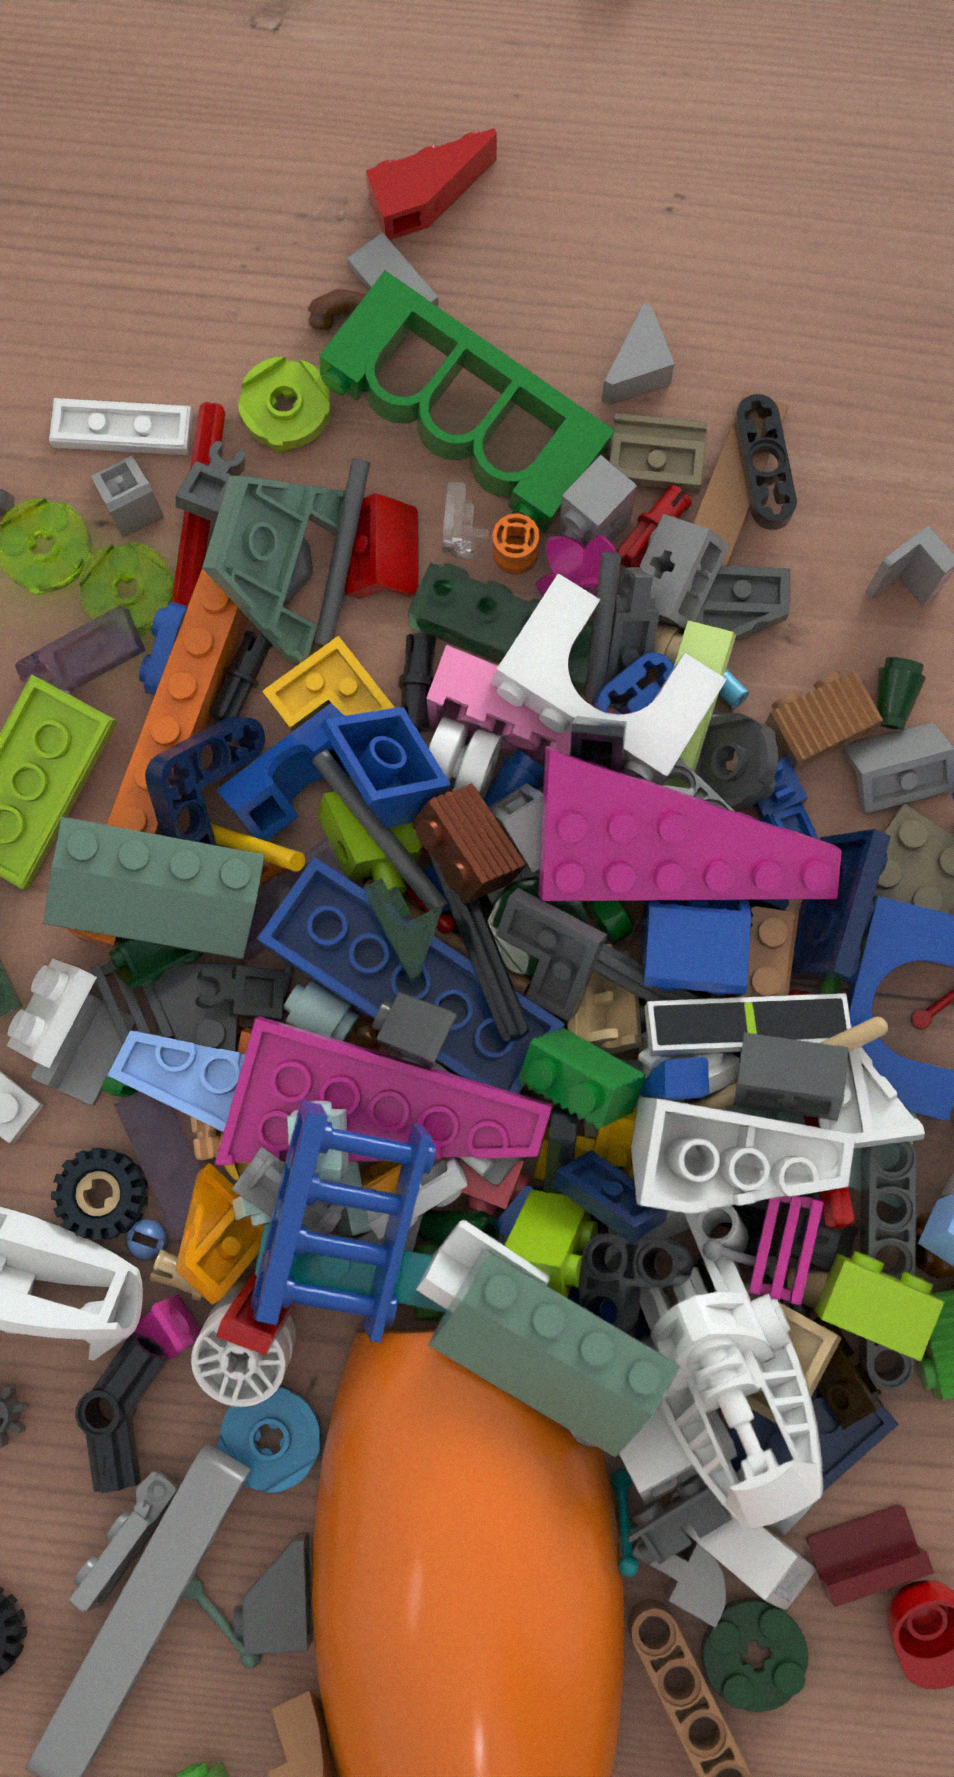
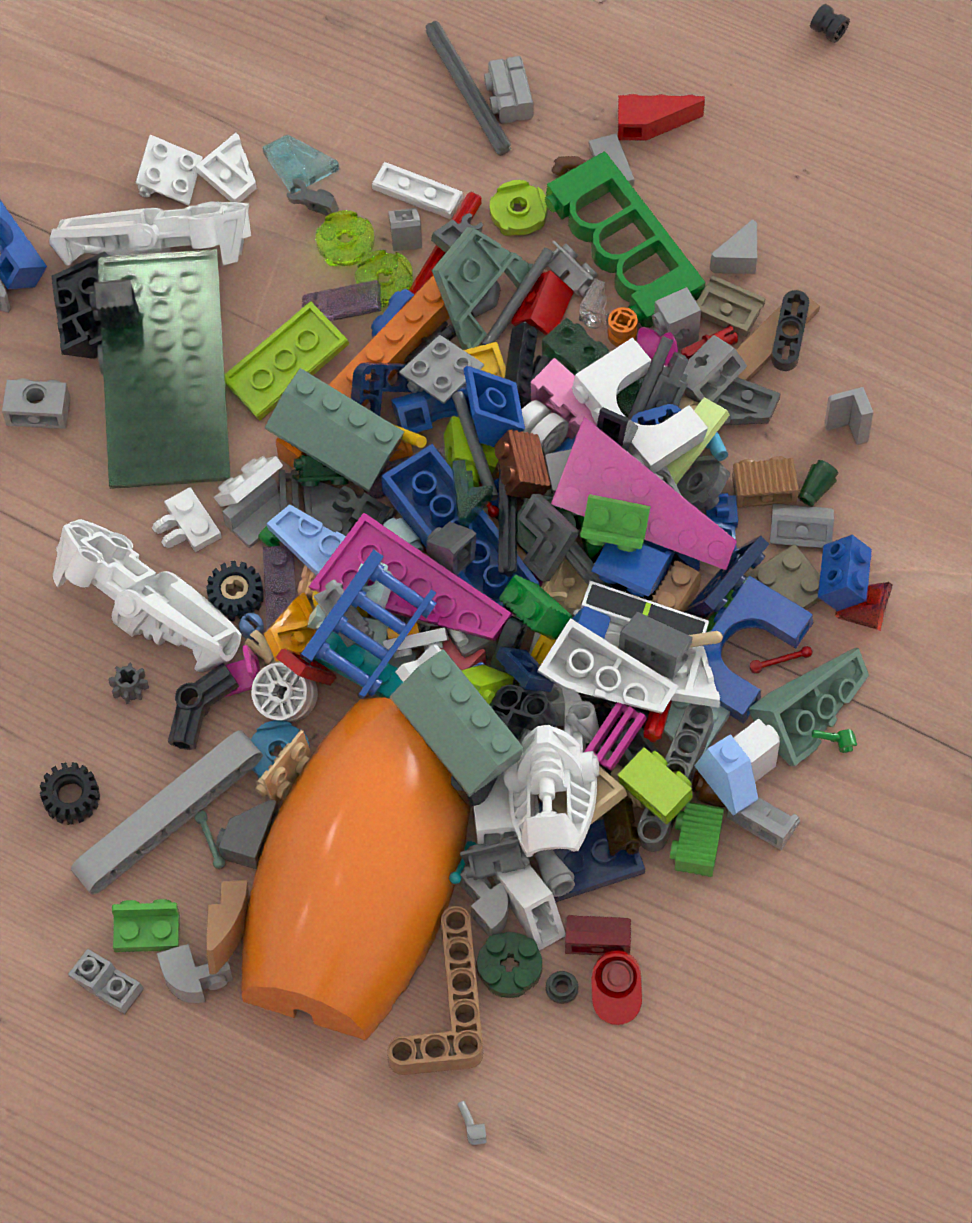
camera: 20 degrees right, 15 degrees down
(126, 1540) = (153, 783): light grey hinge -> none
(133, 233) = (468, 88): none -> dark grey axle
(198, 216) = (510, 90): none -> light grey brick
(277, 720) = (439, 369): none -> light grey hinge
(294, 1513) = (283, 773): none -> tan hinge
(387, 654) = (521, 358): none -> black piece
(420, 481) = (580, 277): none -> light grey hinge
(656, 901) = (615, 523): none -> bright green bracket
(859, 1674) = (558, 978): none -> pearl dark grey plate

